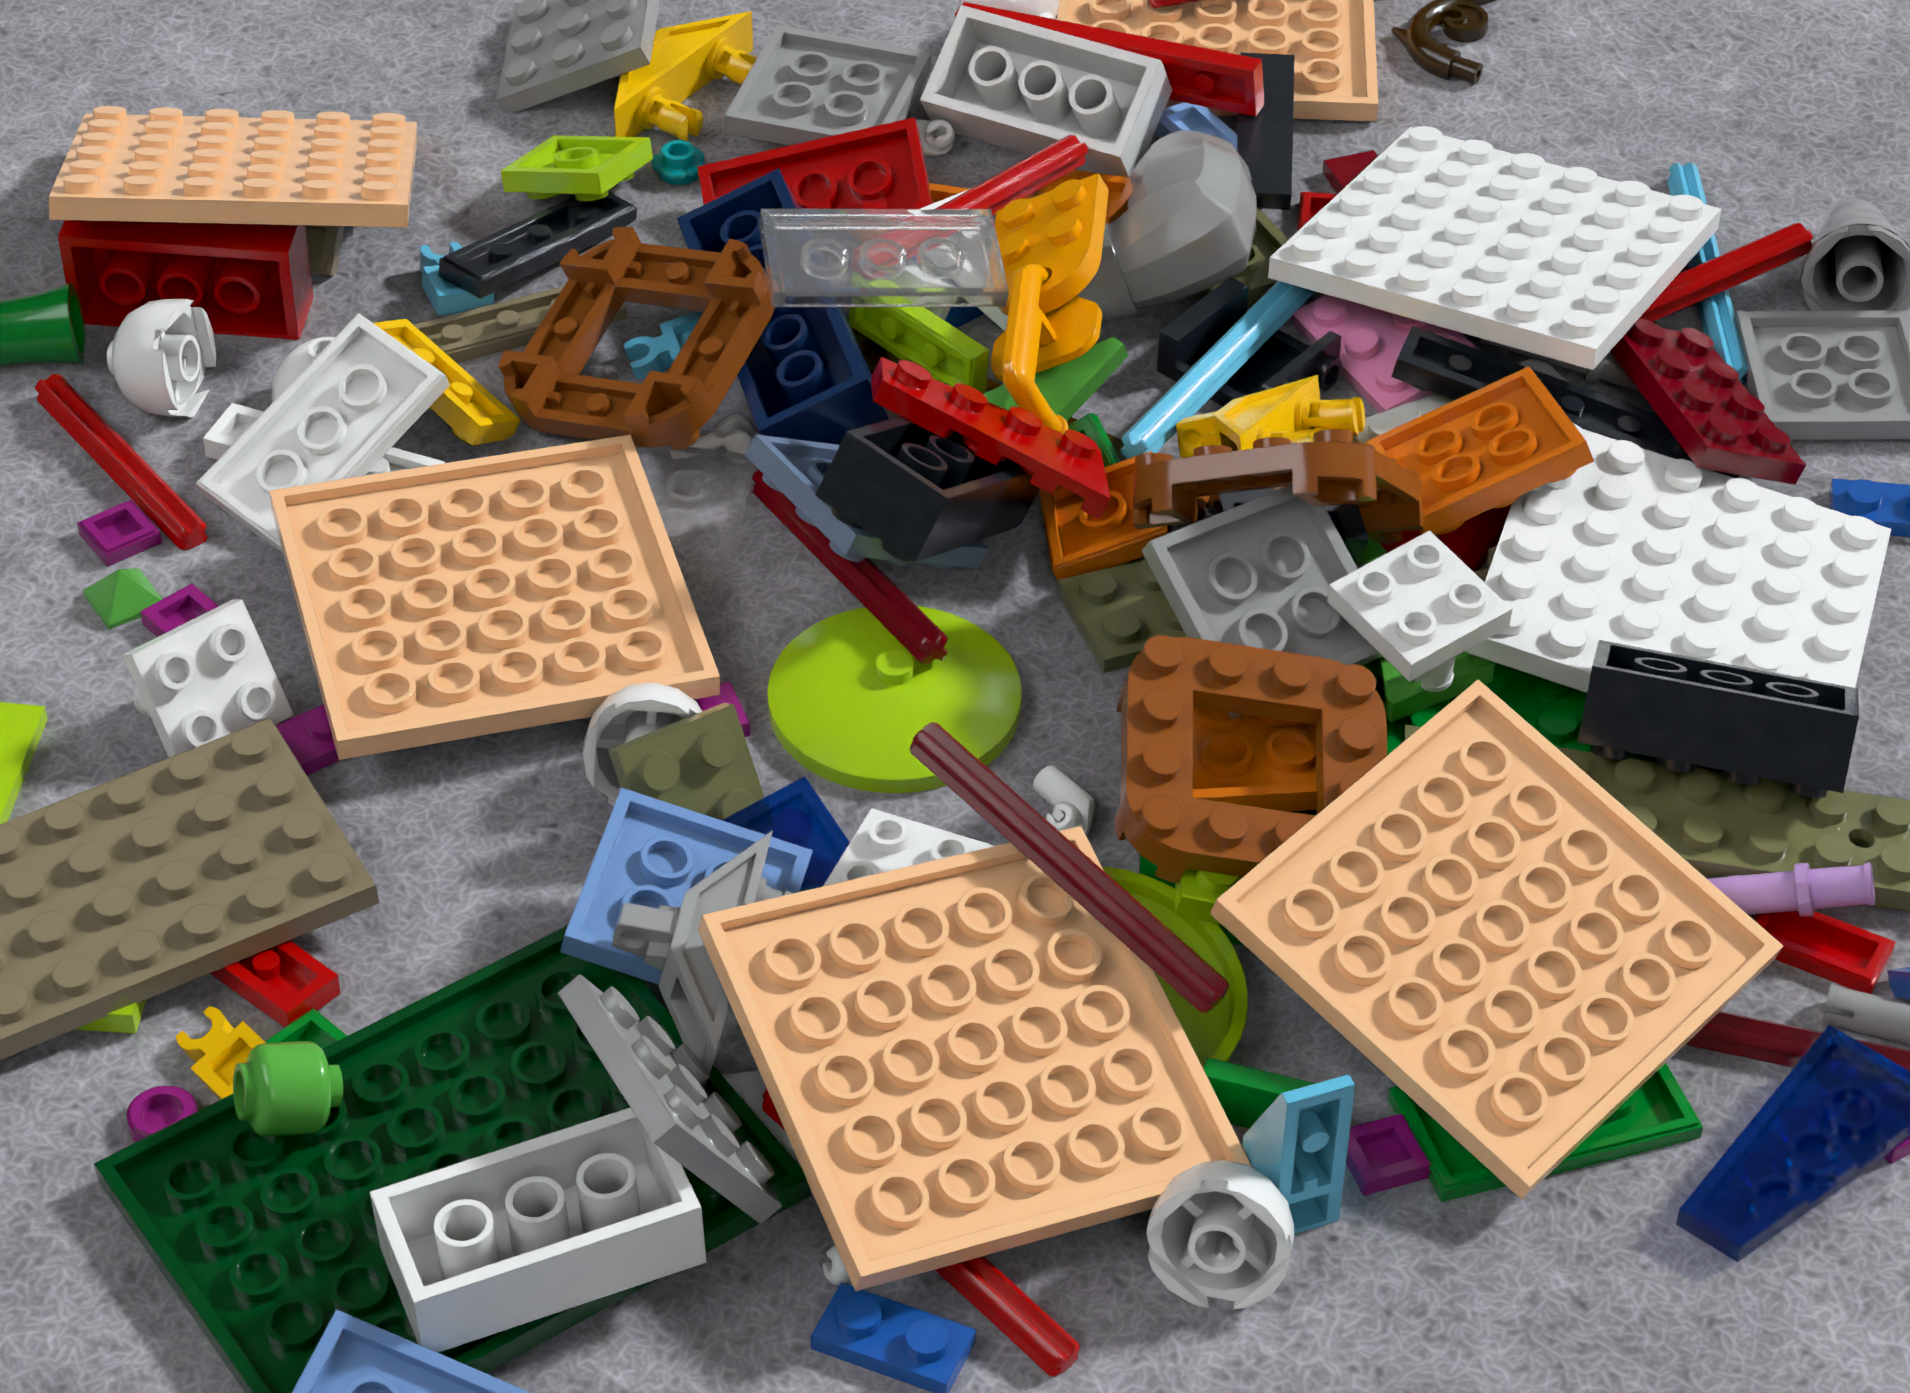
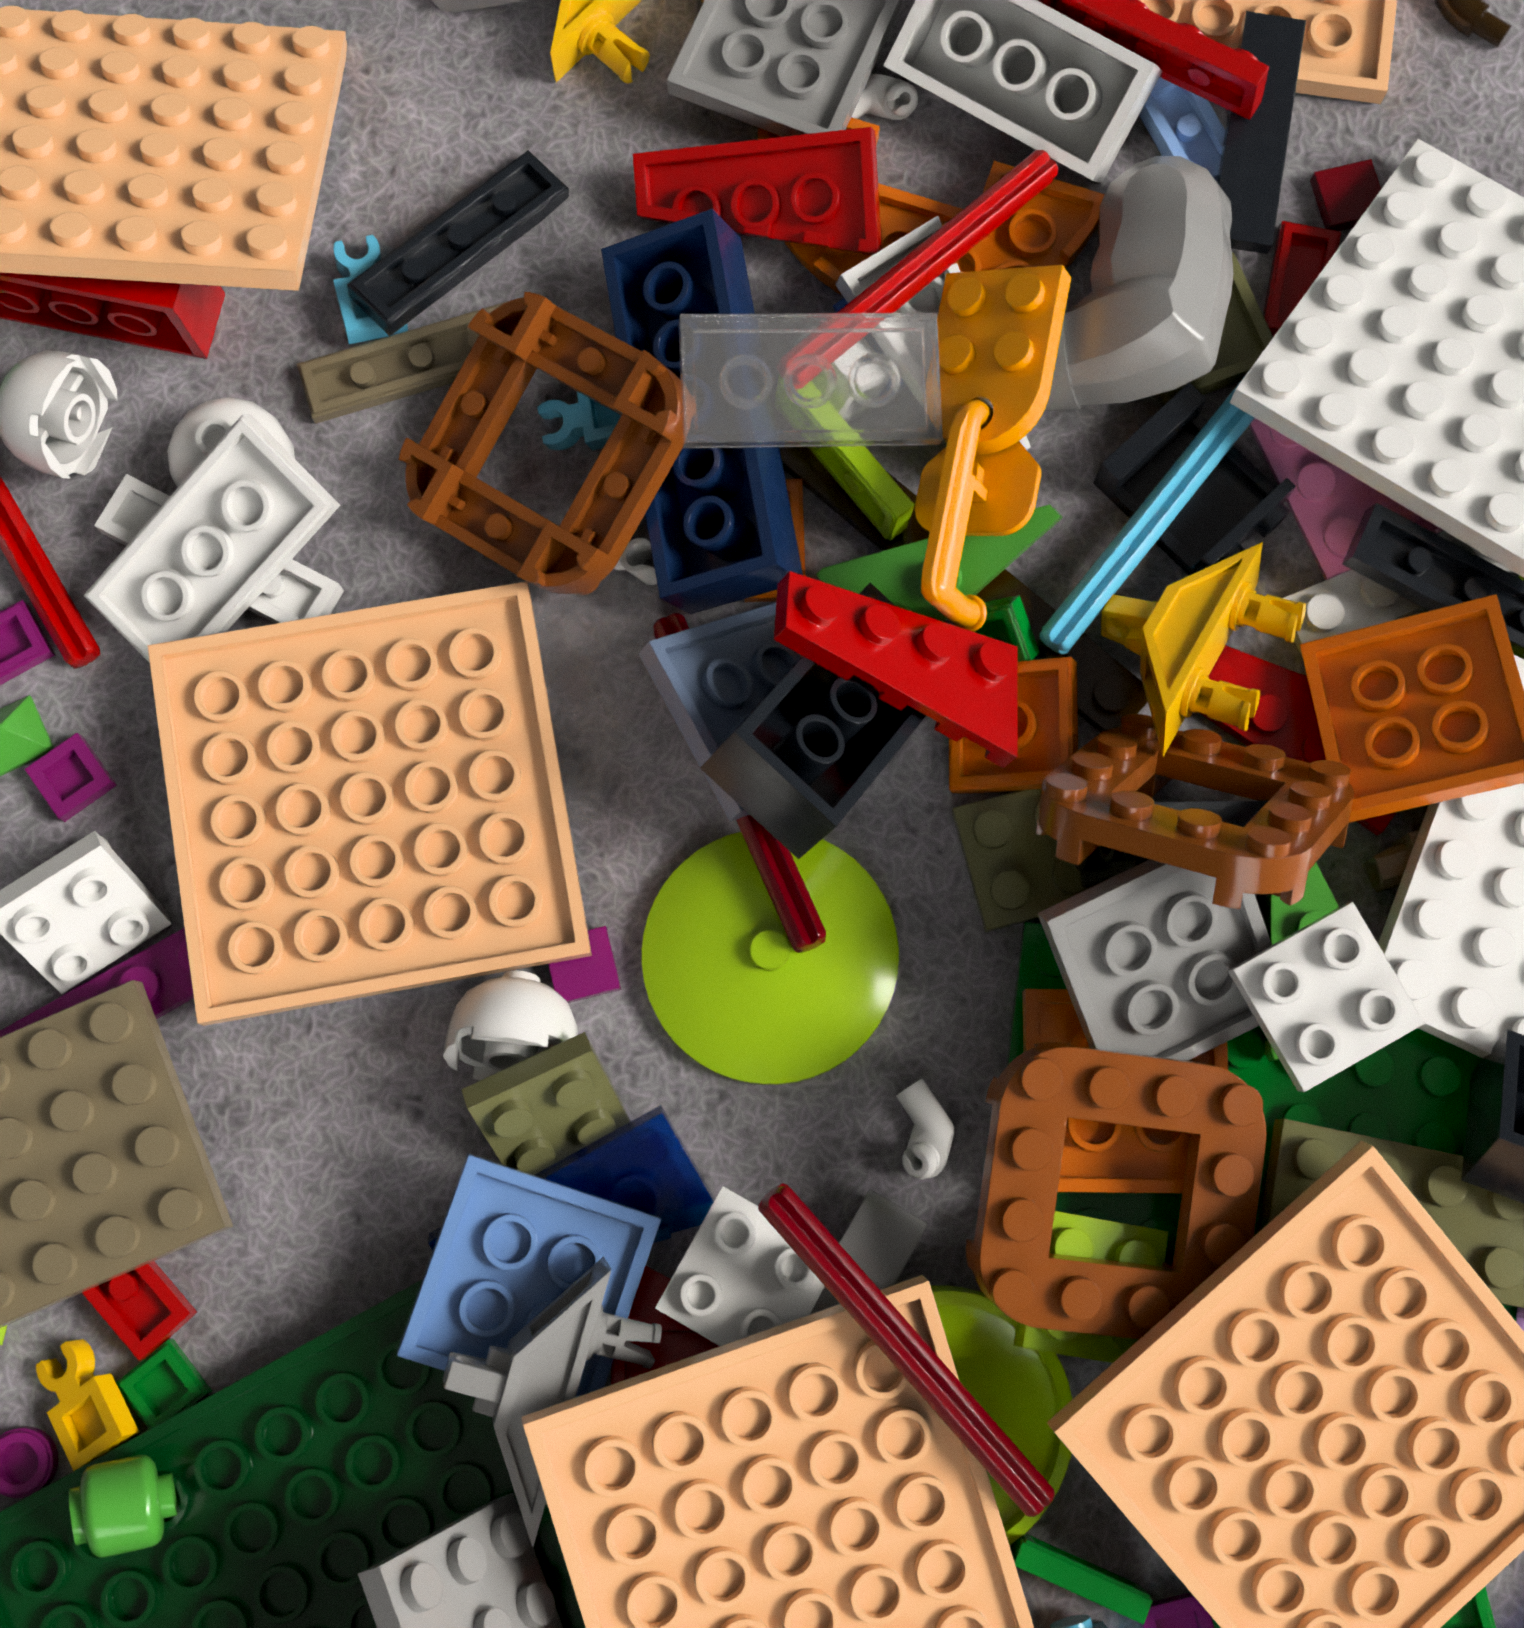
camera: 10 degrees right, 35 degrees up
(465, 404) = (338, 459): yellow plate -> none
(576, 166) = (506, 129): lime plate -> none
(678, 162) = (619, 130): teal plate -> none

